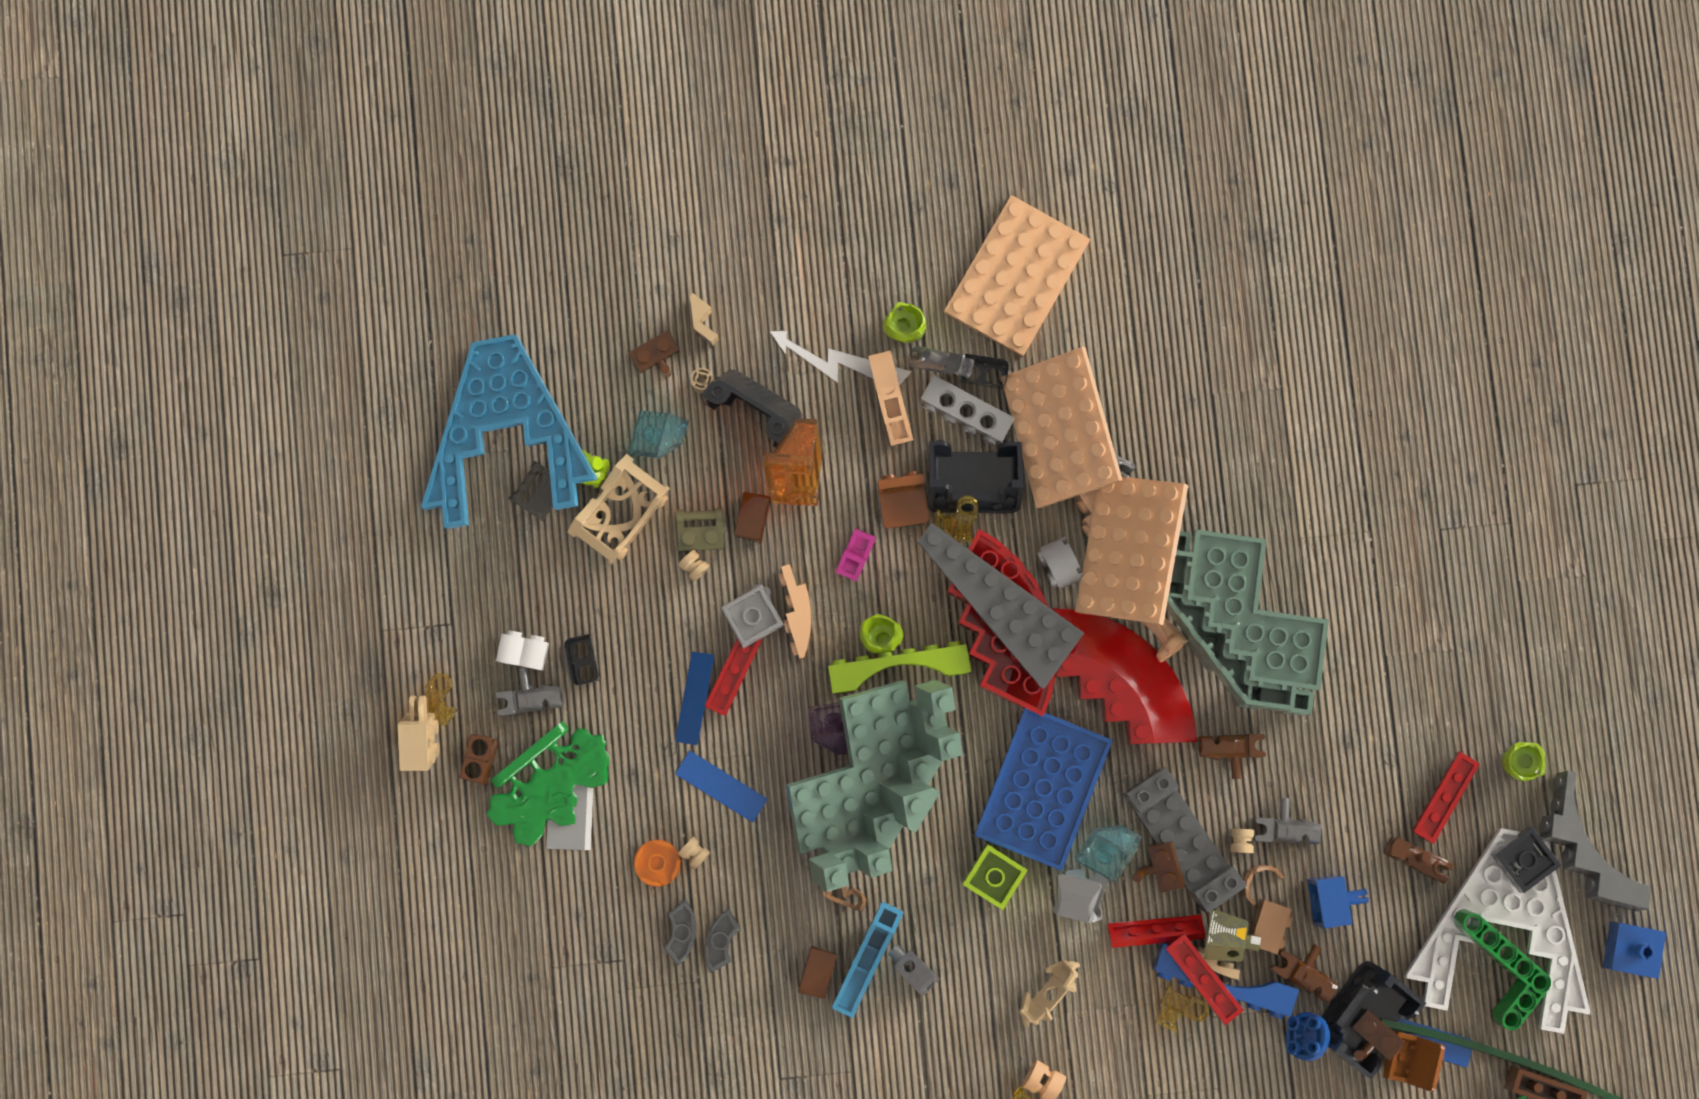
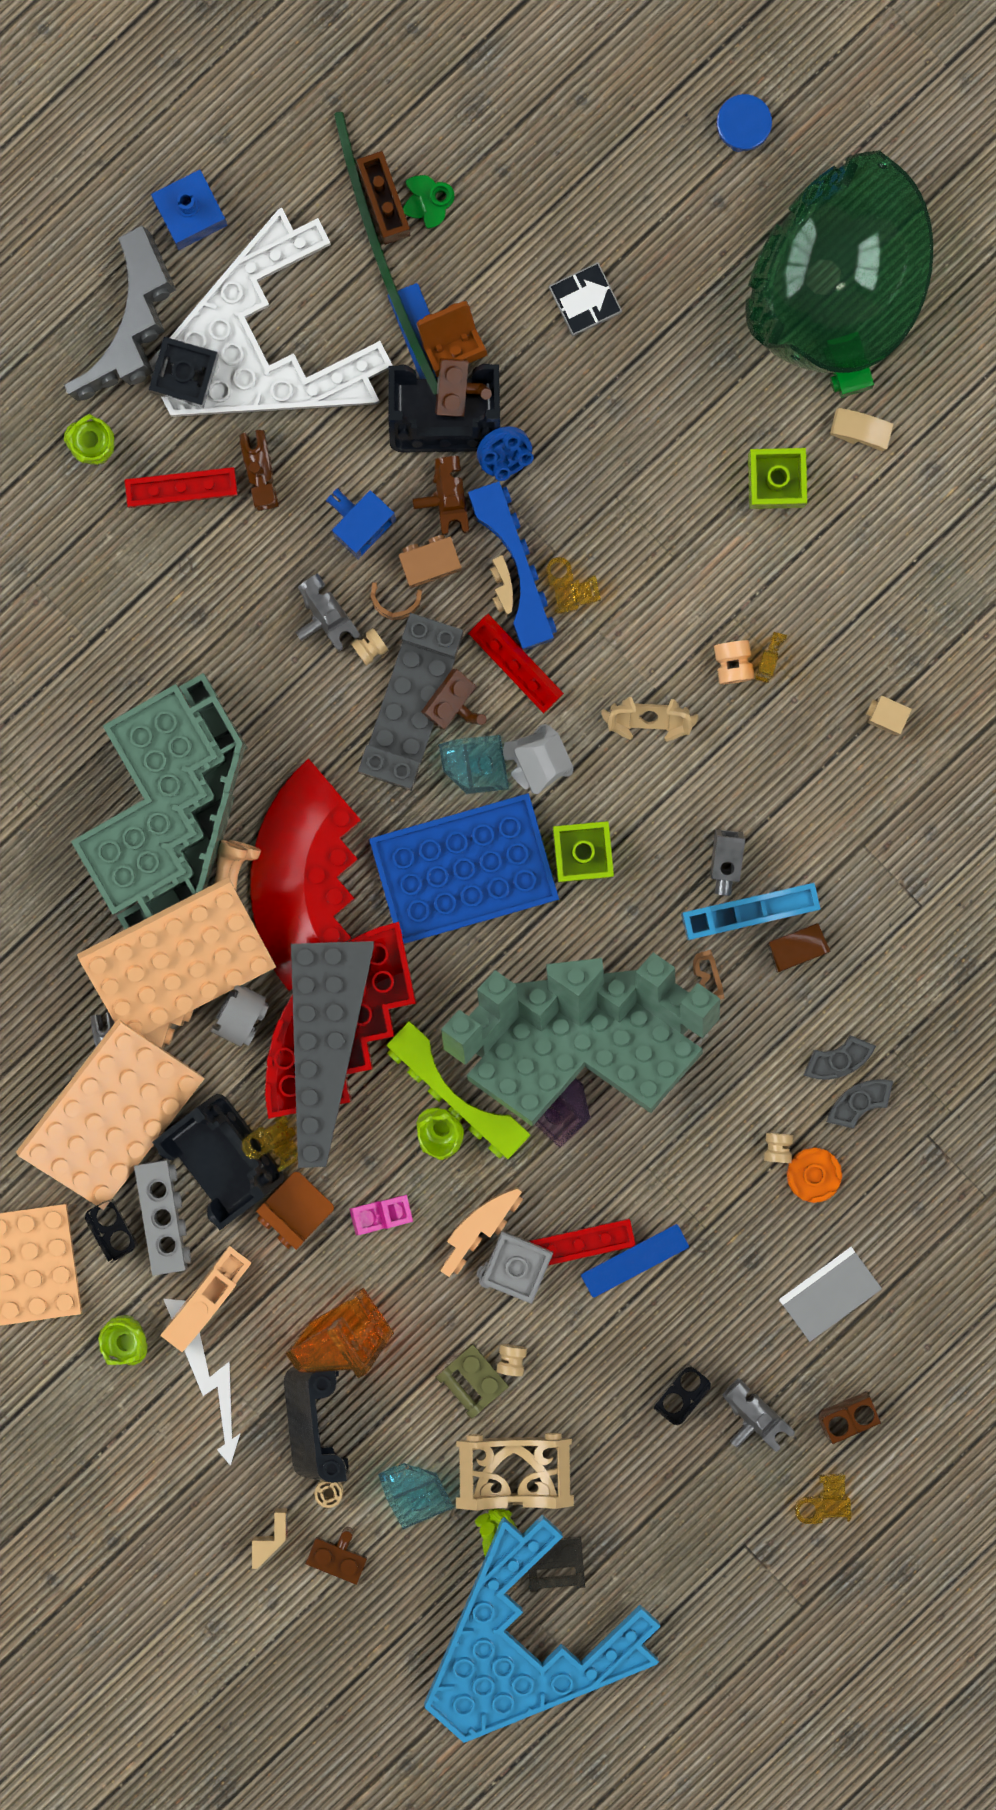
camera: 130 degrees left, 5 degrees up
(417, 737) = (874, 1491): tan brick -> none
(522, 651) = (718, 1458): white brick -> none
(549, 791) = (827, 1328): green plant -> none
(721, 786) = (697, 1171): blue sticker -> none
(752, 517) = (422, 1341): reddish brown piece -> none
(942, 362) = (133, 1277): flat silver piece -> none
(1204, 979) = (526, 587): red plate -> none
(1228, 938) = (471, 592): olive torso -> none
(1231, 747) = (289, 721): reddish brown piece -> none
(1508, 960) = (290, 317): green beam -> none

